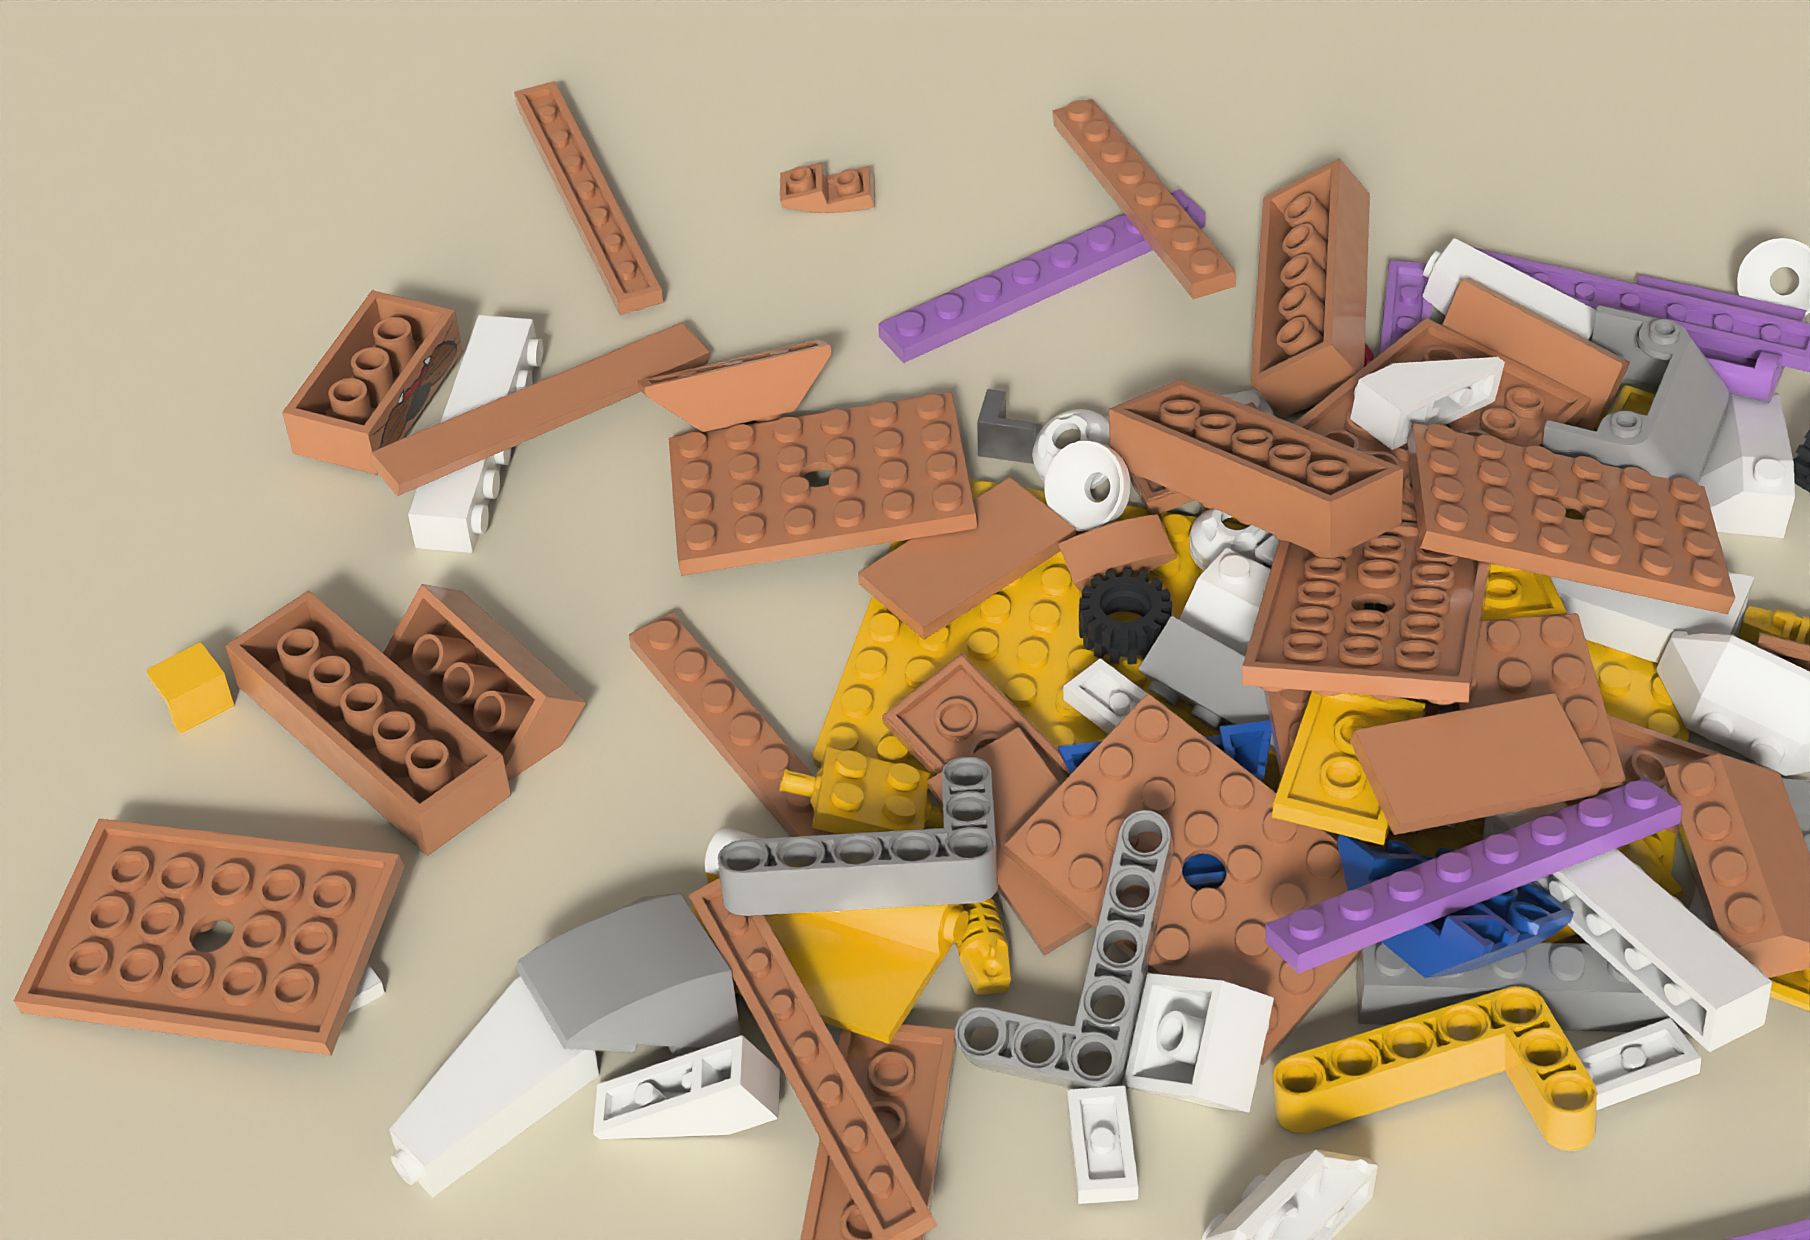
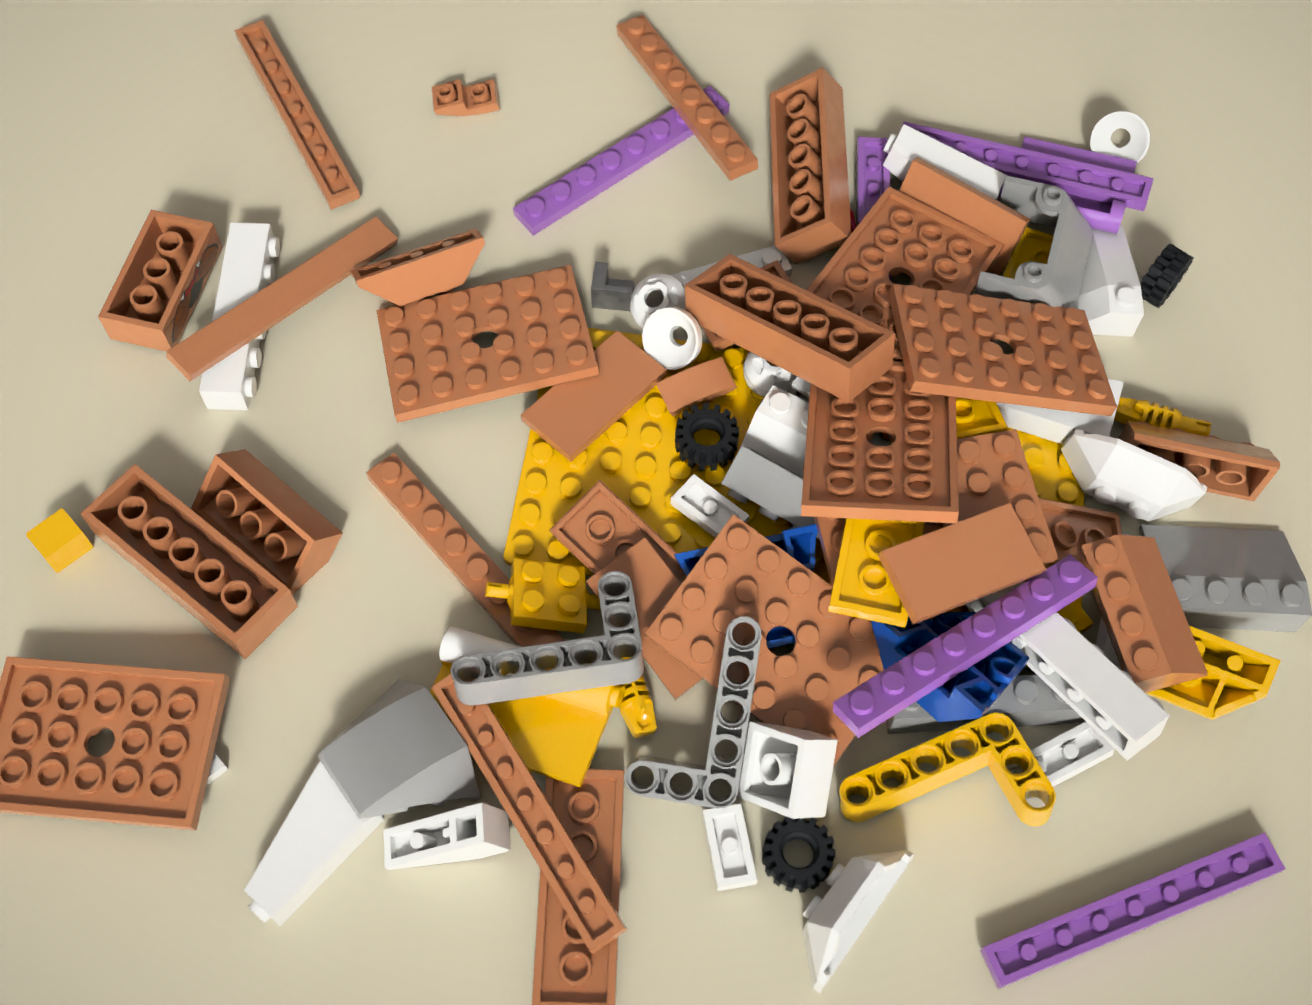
camera: 10 degrees left, 15 degrees up
(1208, 1132) = (792, 876): none -> black tyre
(1423, 394) = (894, 259): white slope -> none

